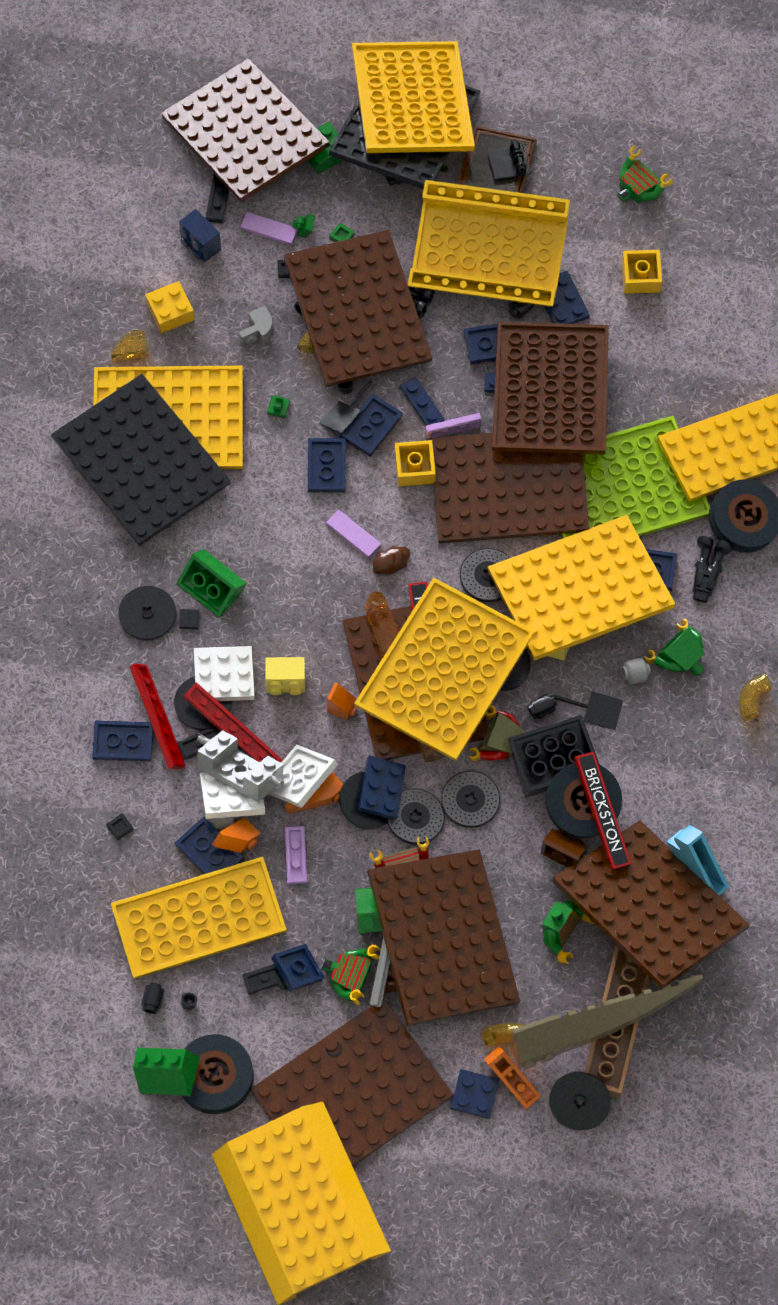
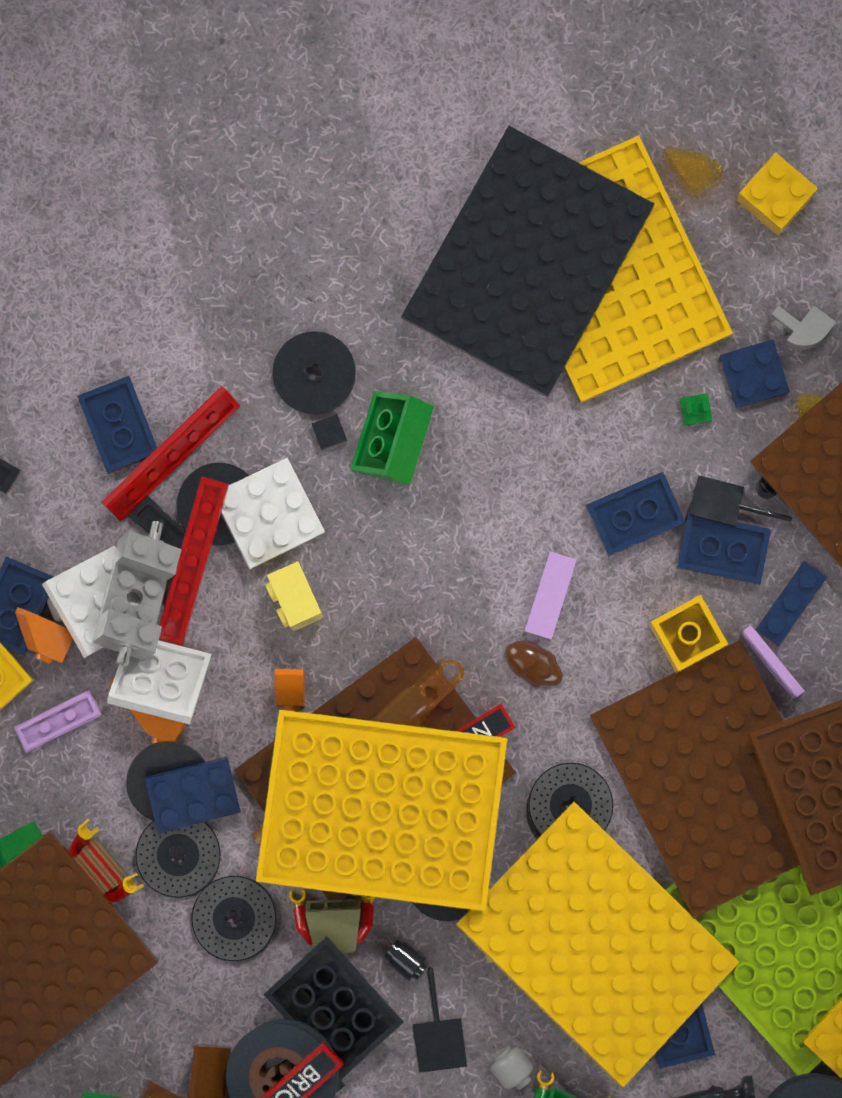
camera: 75 degrees right, 15 degrees up
(272, 366) = (754, 374): none -> dark blue plate

